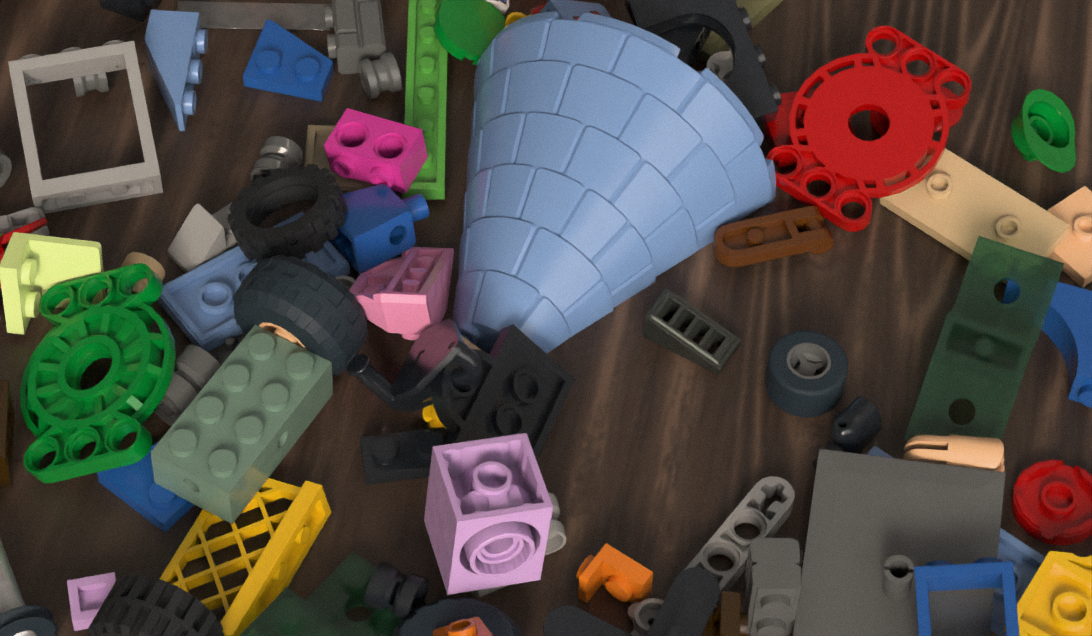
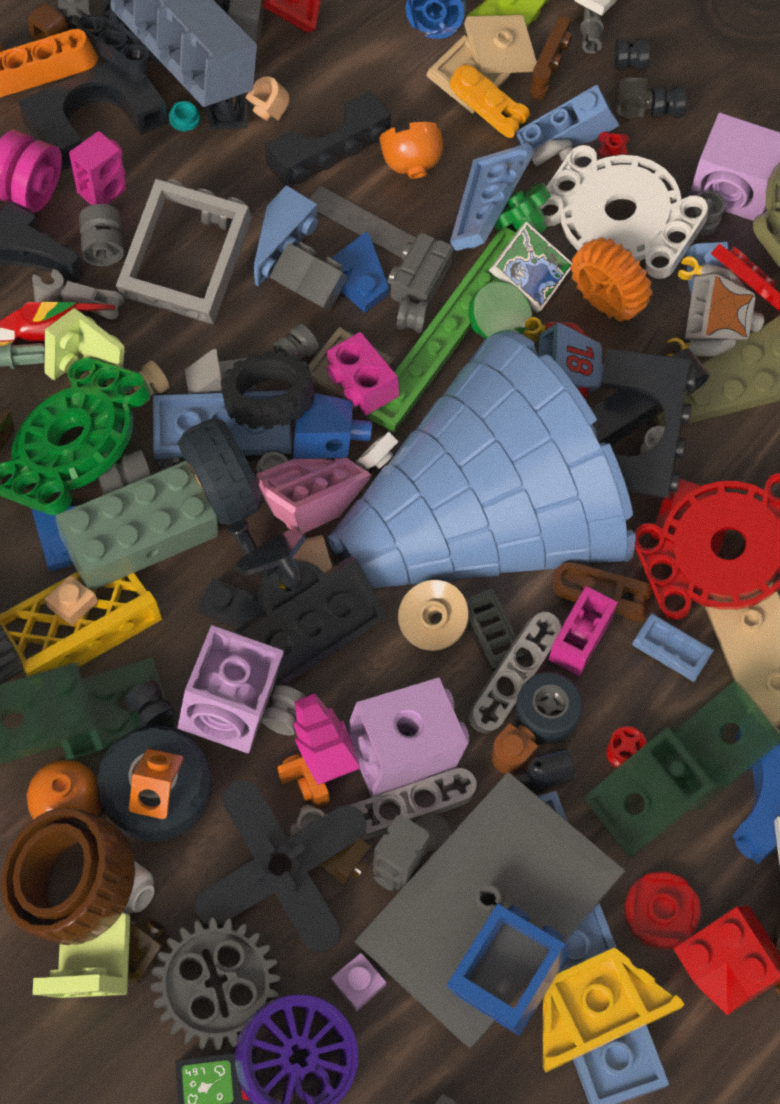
camera: 30 degrees right, 10 degrees up
(220, 540) = (71, 600): none -> light nougat plate
(241, 88) = (310, 276): none -> dark grey brick
(445, 222) = (378, 452): none -> white plate
(608, 523) = (323, 740): none -> dark pink connector
(620, 328) = (422, 603): none -> tan dish
(691, 472) = (406, 736): none -> lavender brick
(751, 359) = (514, 671): none -> light grey beam
(787, 281) = (582, 631): none -> dark pink brick
(800, 433) = (513, 749): none -> dark orange plate
(881, 253) = (672, 647): none -> medium blue plate
(904, 360) = (624, 739): none -> red wheel
(957, 451) = (607, 835): light nougat arm -> none

